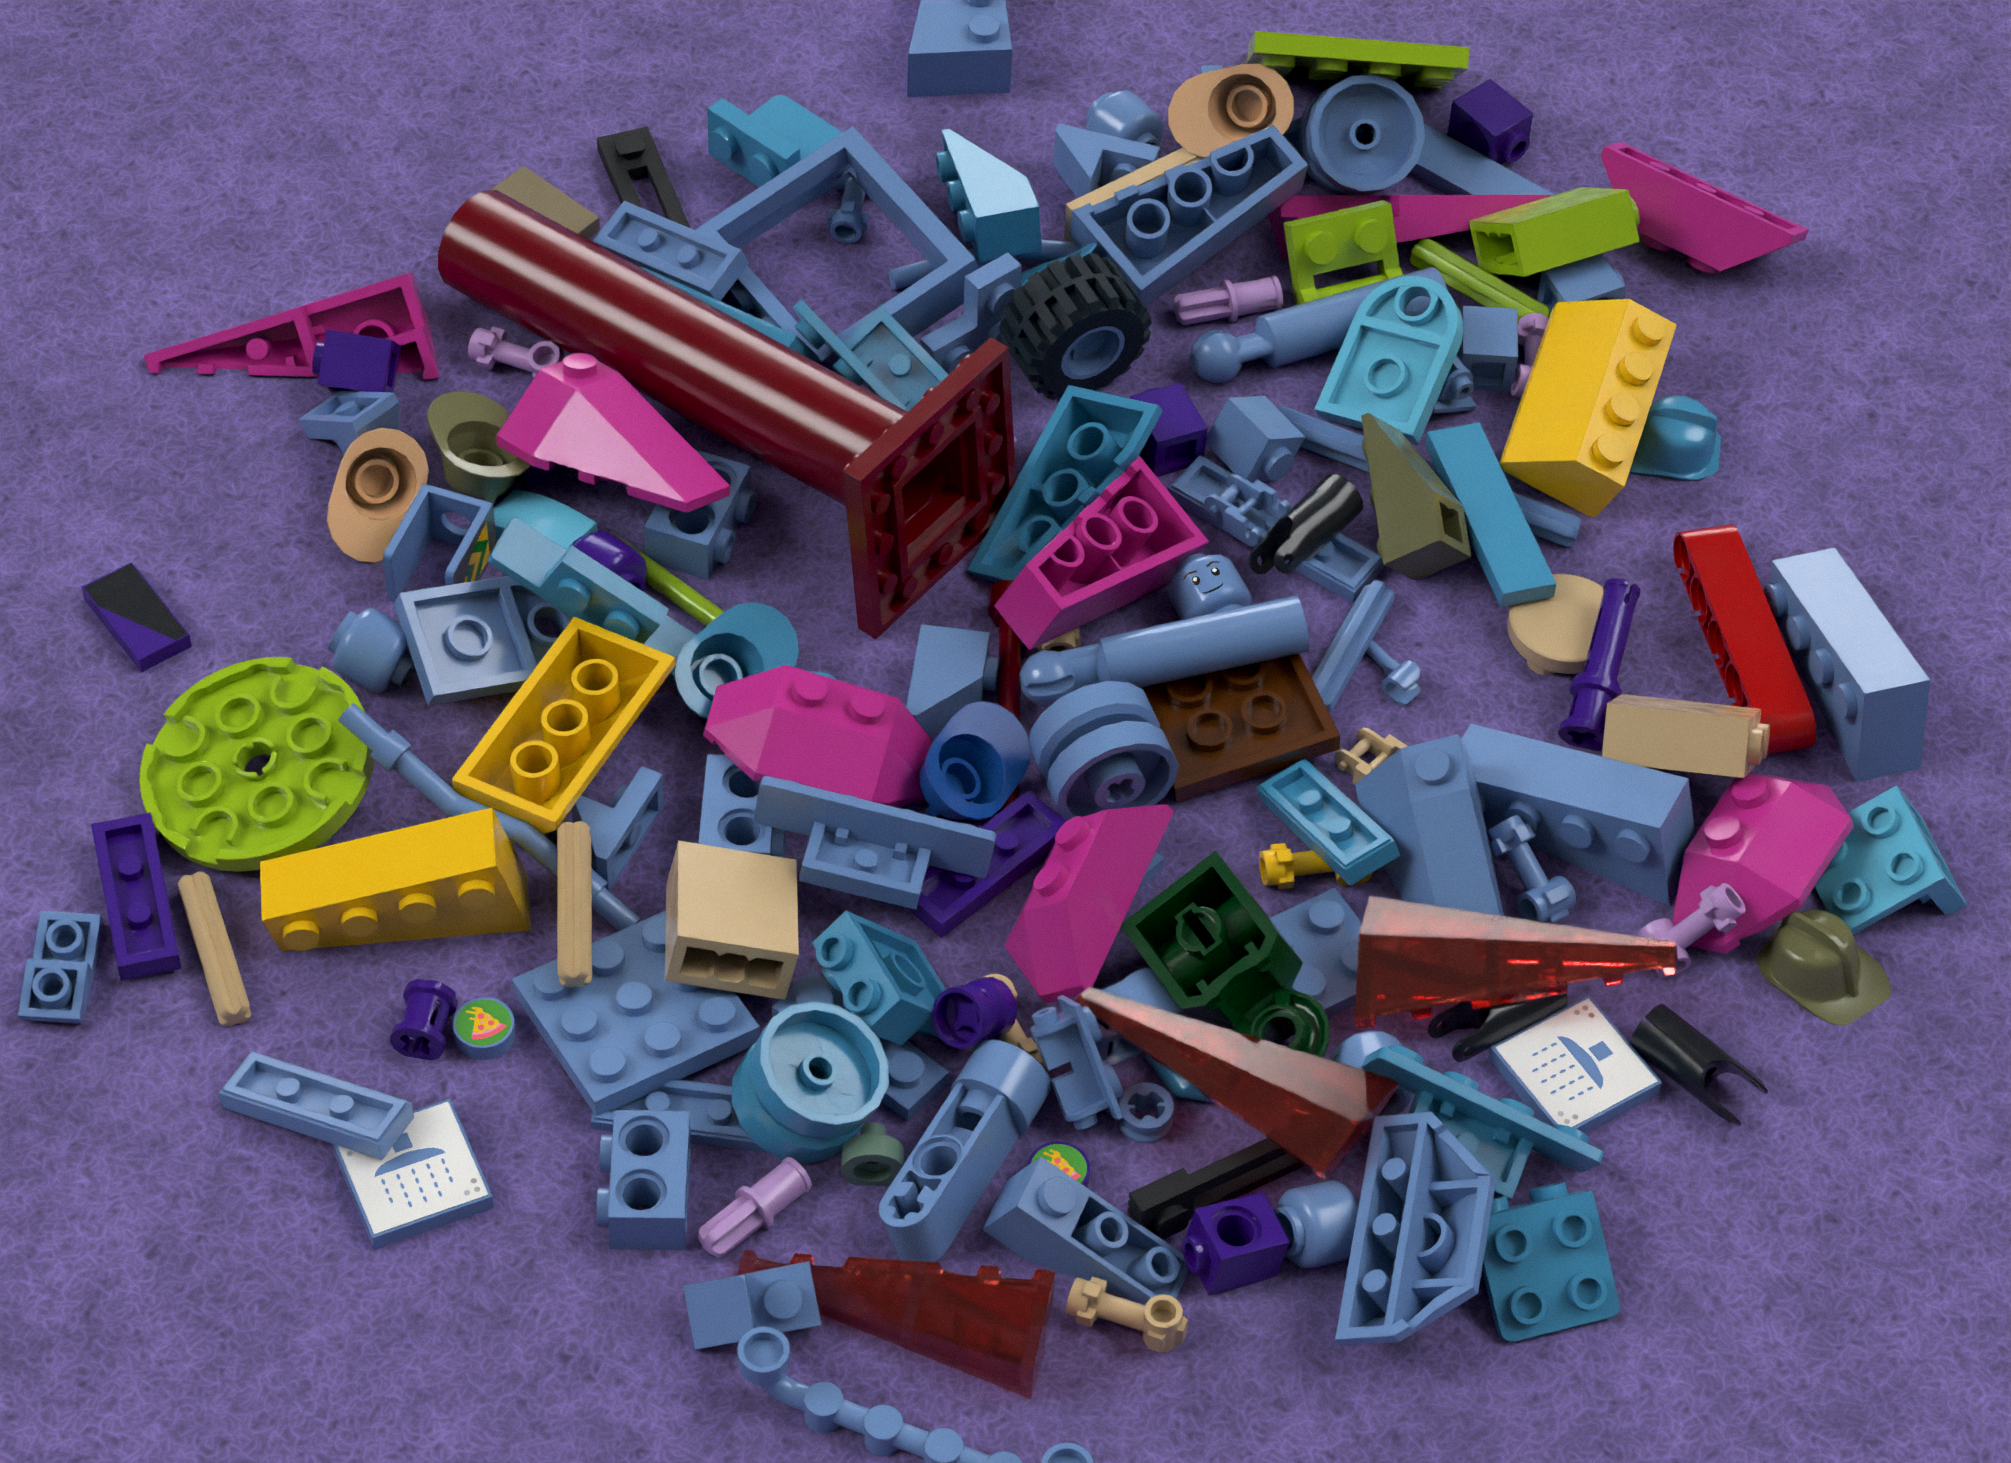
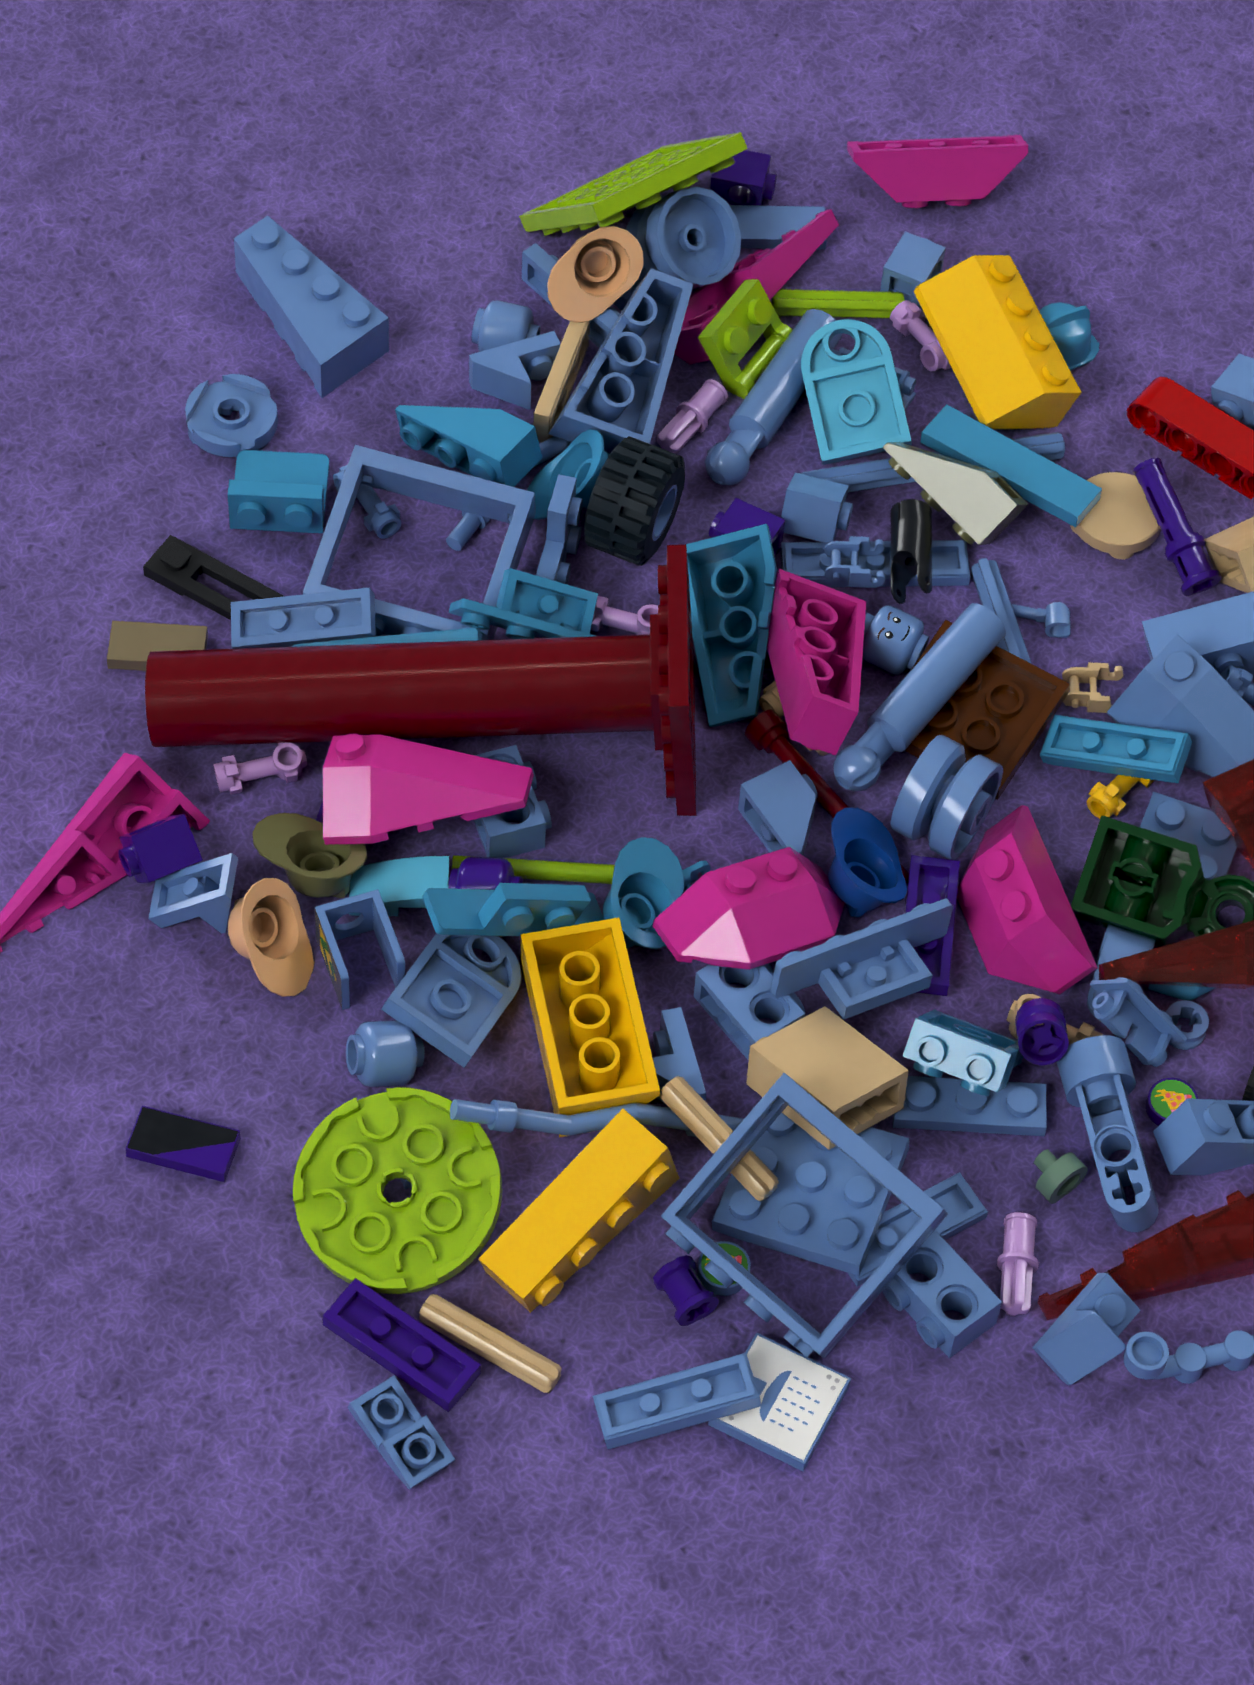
camera: 40 degrees left, 5 degrees up
(469, 940) = (727, 1269): none -> medium blue window
(805, 84) = (229, 437): none -> medium blue plate
(810, 1082) = (987, 1152): dark azure wheel -> none
(1490, 346) = (905, 341): medium blue brick -> none
(1555, 230) = (866, 234): lime brick -> none

